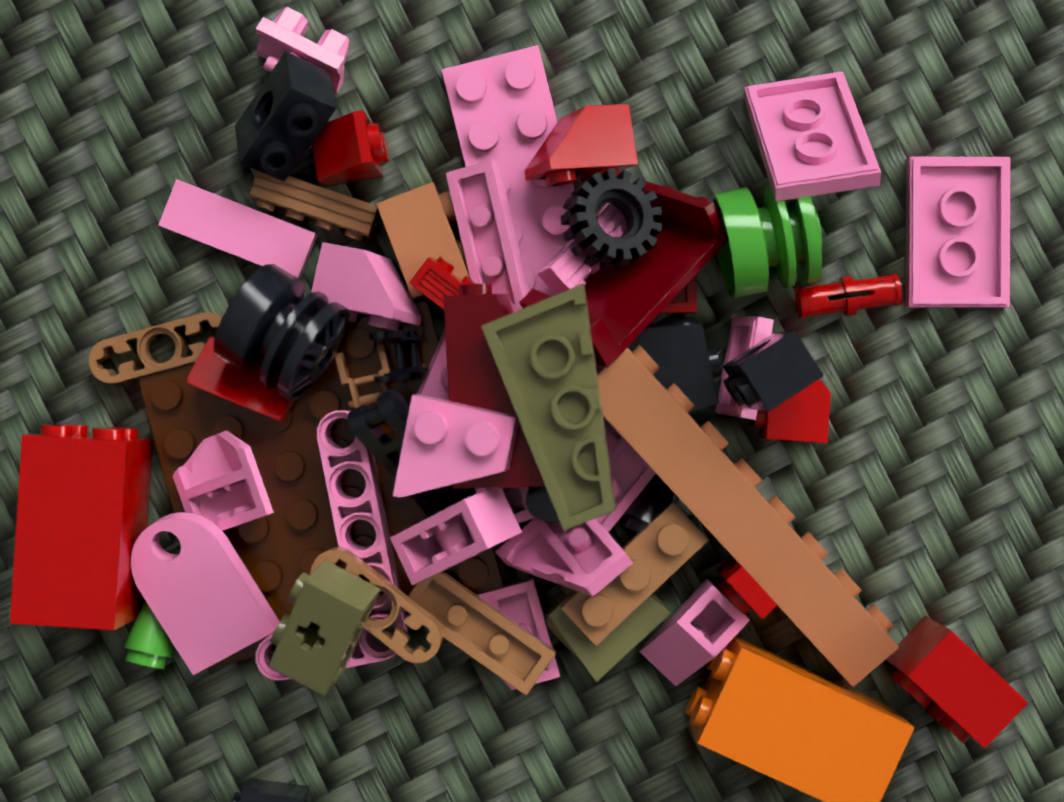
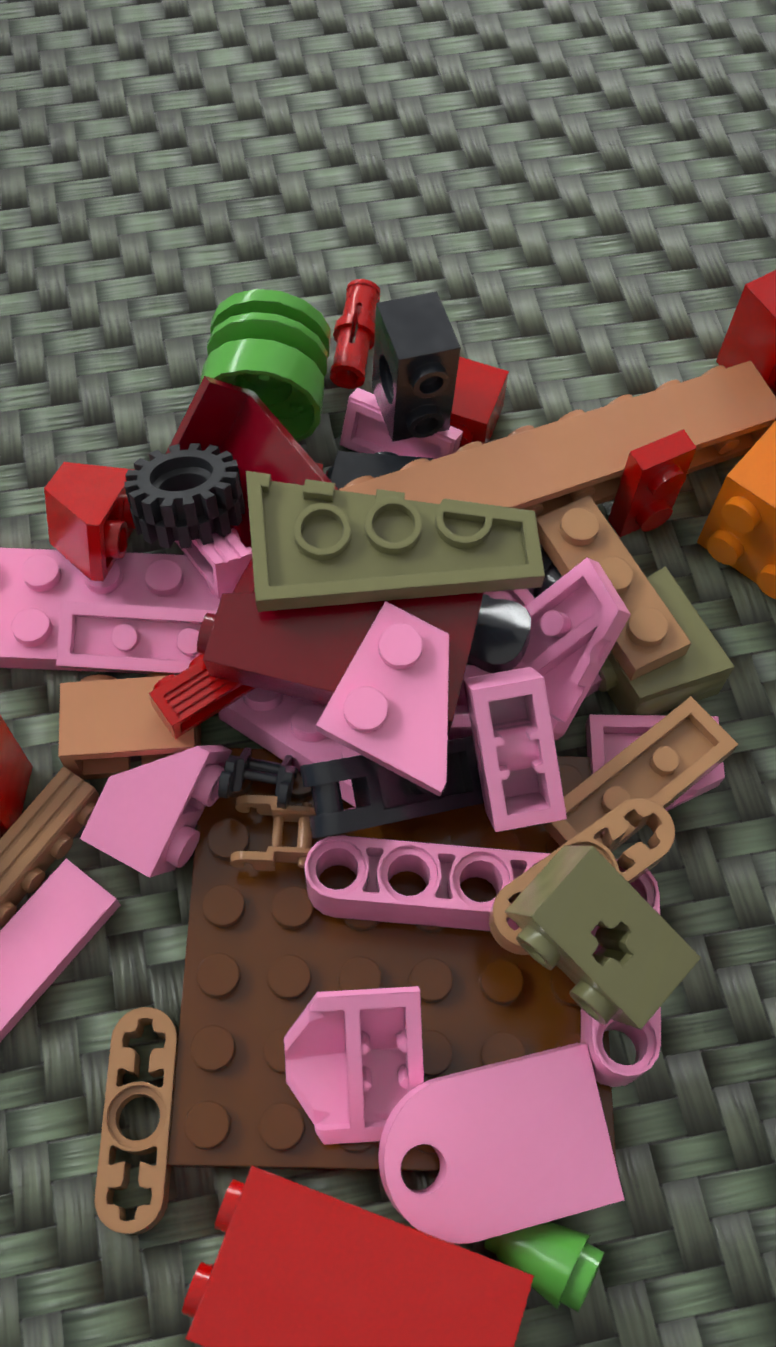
camera: 80 degrees left, 25 degrees down
(229, 383) = (223, 994): red slope -> none
(281, 332) = (174, 903): black wheel -> none
(694, 633) = (697, 548): bright pink slope -> none
(811, 136) = (174, 302): bright pink tile -> none
(957, 232) = (323, 236): bright pink tile -> none

